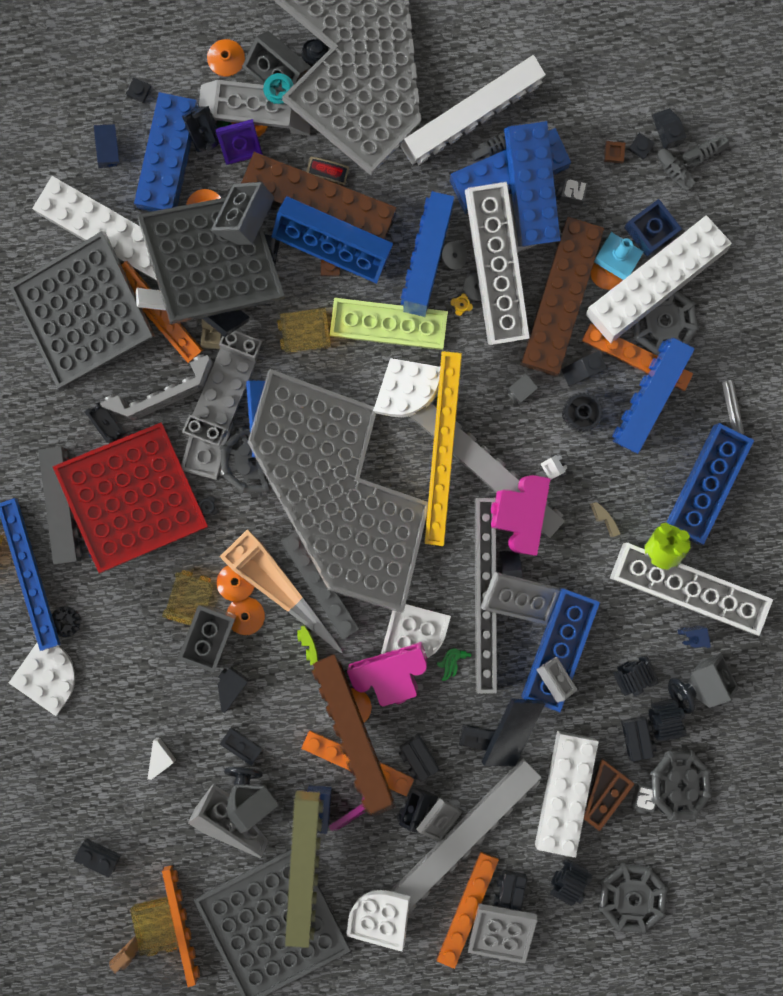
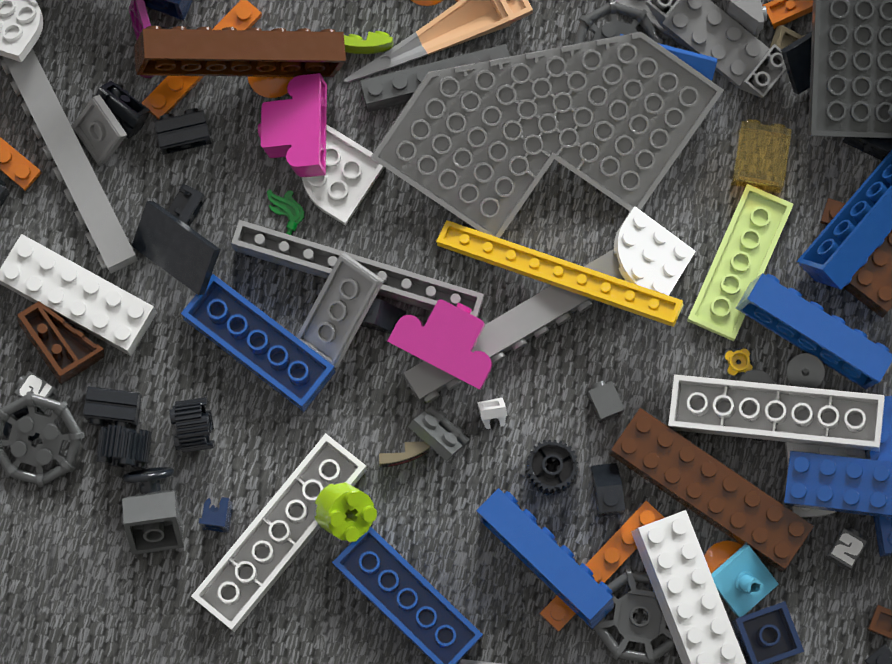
camera: 110 degrees right, 10 degrees down
(557, 680) = (222, 321): light grey slope -> none
(587, 500) = (439, 432): none -> dark grey plate

